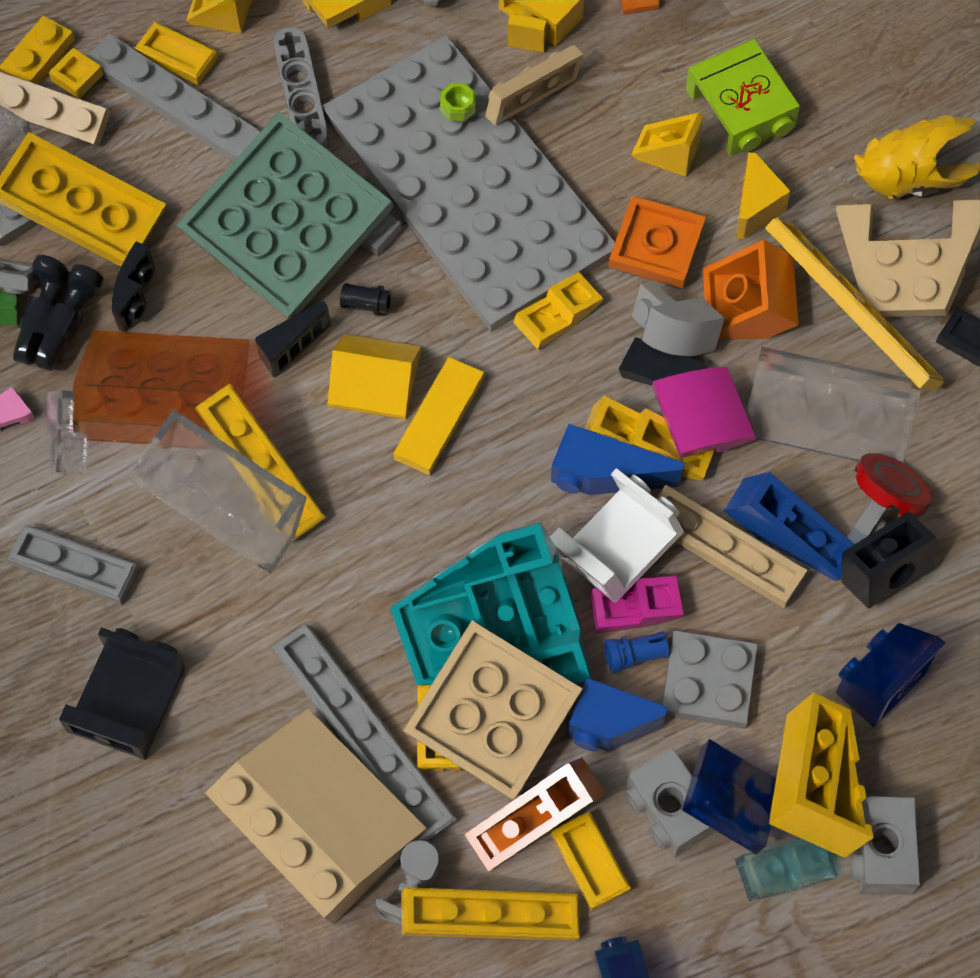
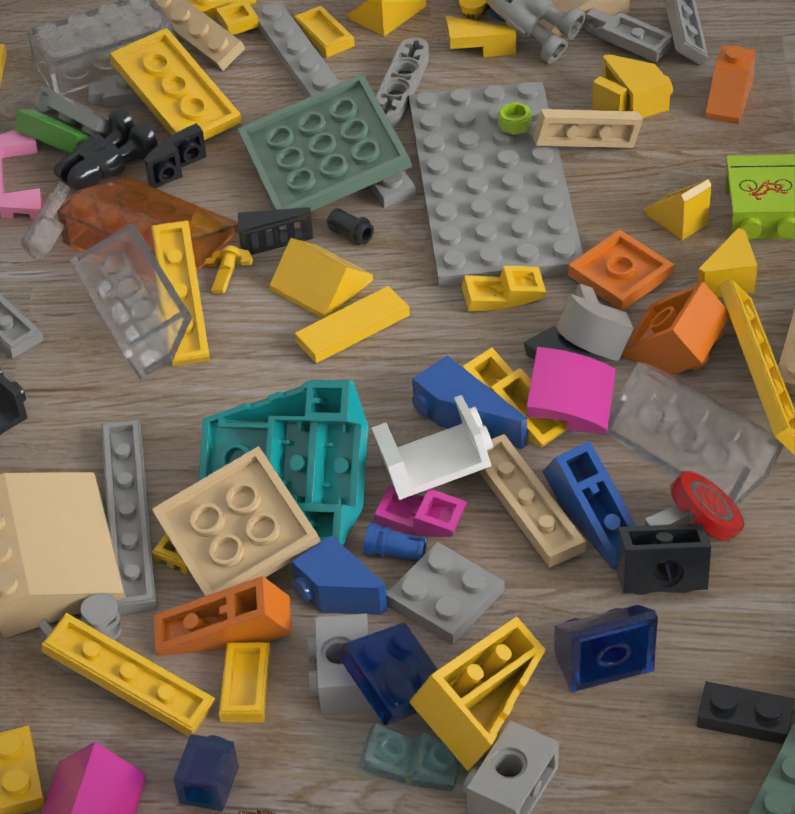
camera: 30 degrees right, 20 degrees down
(267, 386) = (229, 258): none -> yellow piece

